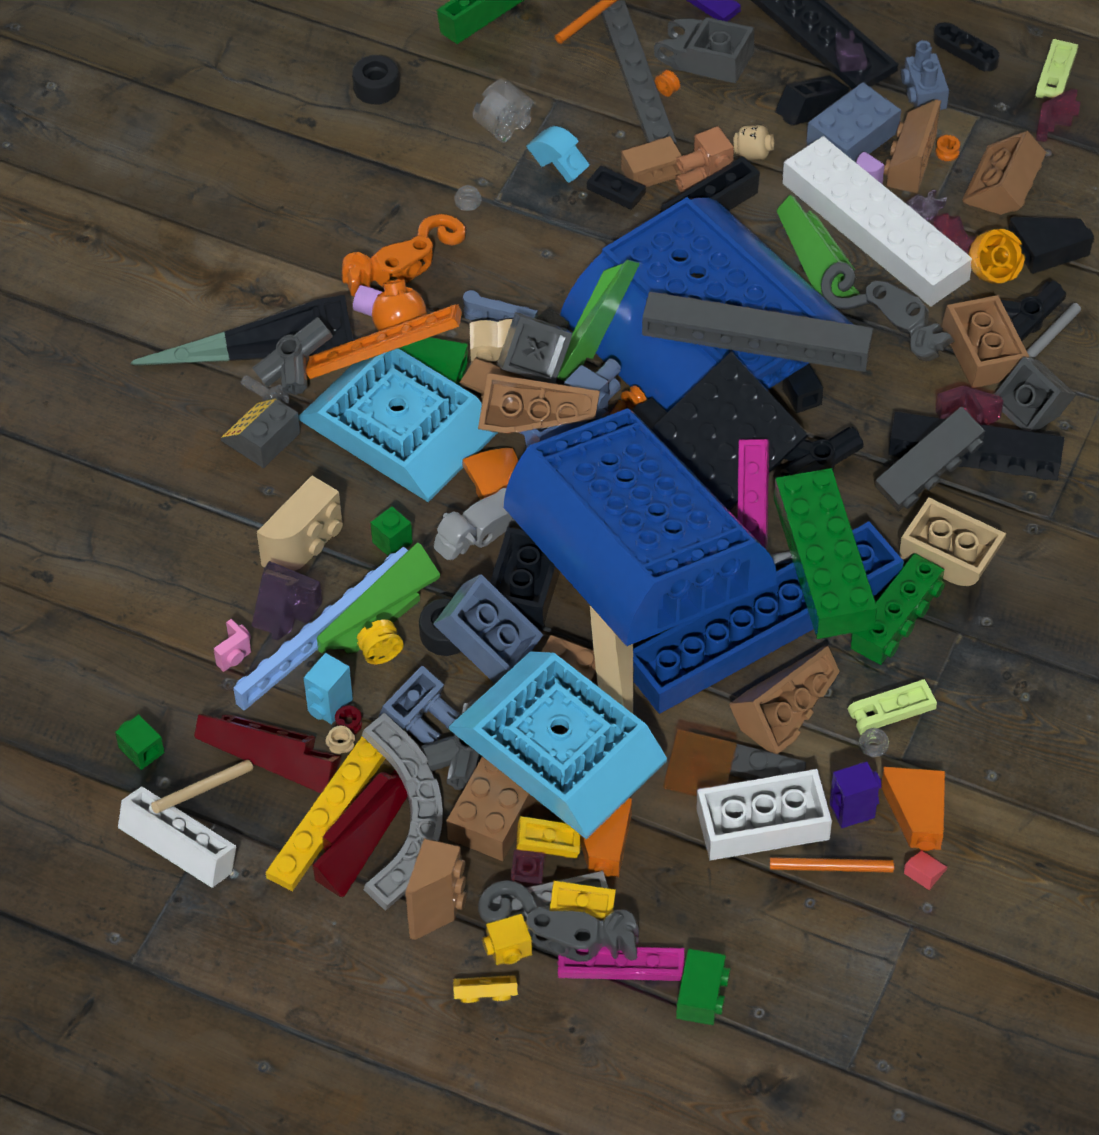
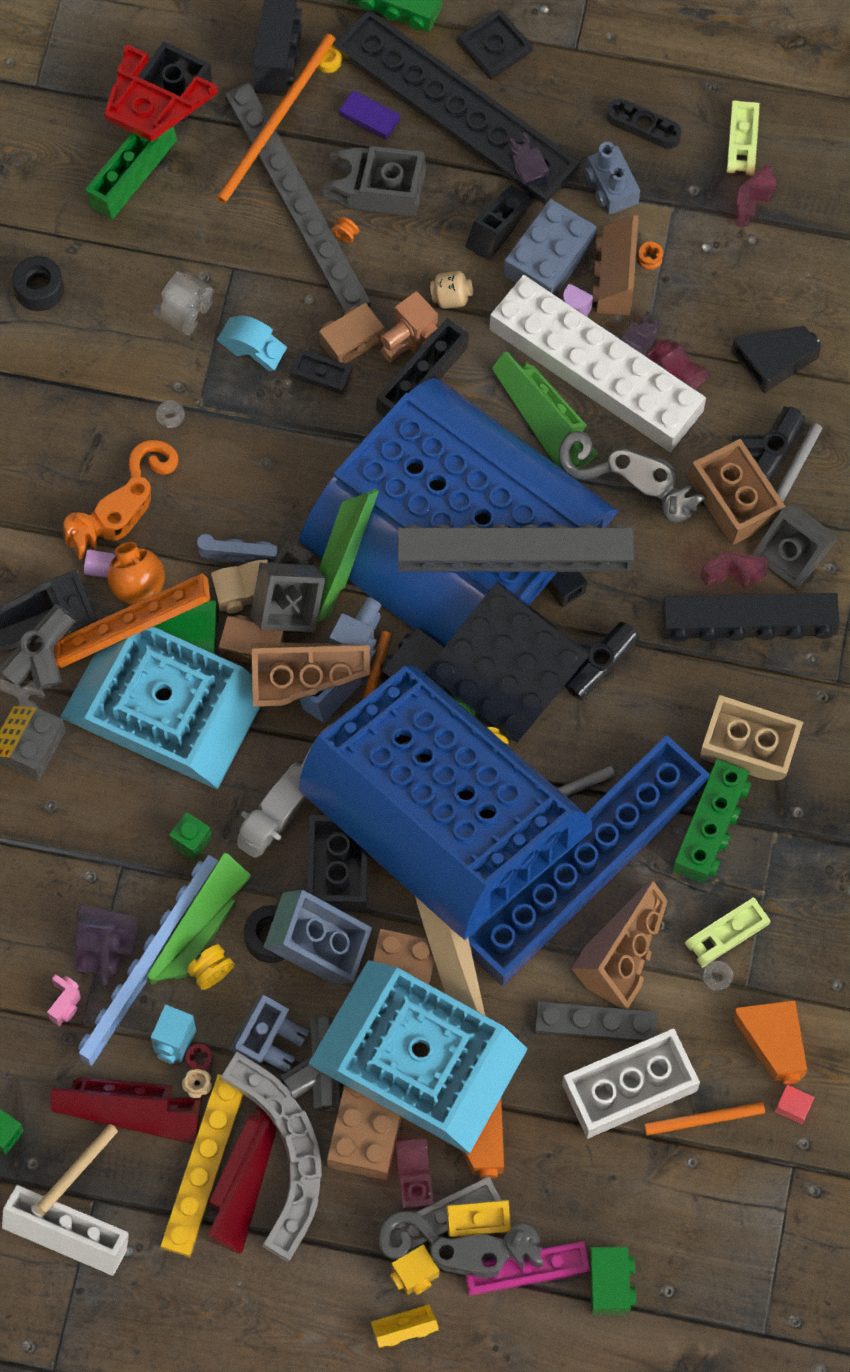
camera: 15 degrees left, 15 degrees up
(301, 526) = (99, 853): tan brick -> none
(435, 888) = (337, 1237): medium nougat slope -> none
(490, 470) = (275, 743): orange brick -> none
(547, 837) = (429, 1157): yellow plate -> none
(633, 397) = (397, 627): orange bush -> none
(698, 763) = (556, 1040): clear orange plate -> none
(753, 487) = (545, 726): dark pink tile -> none
(824, 553) = (633, 787): green brick -> none
(854, 794) = (714, 1044): dark purple brick -> none
(930, 459) = (711, 647): dark grey brick -> none
(996, 256) = (728, 388): light orange cylinder -> none
(1005, 174) = (715, 280): medium nougat slope -> none

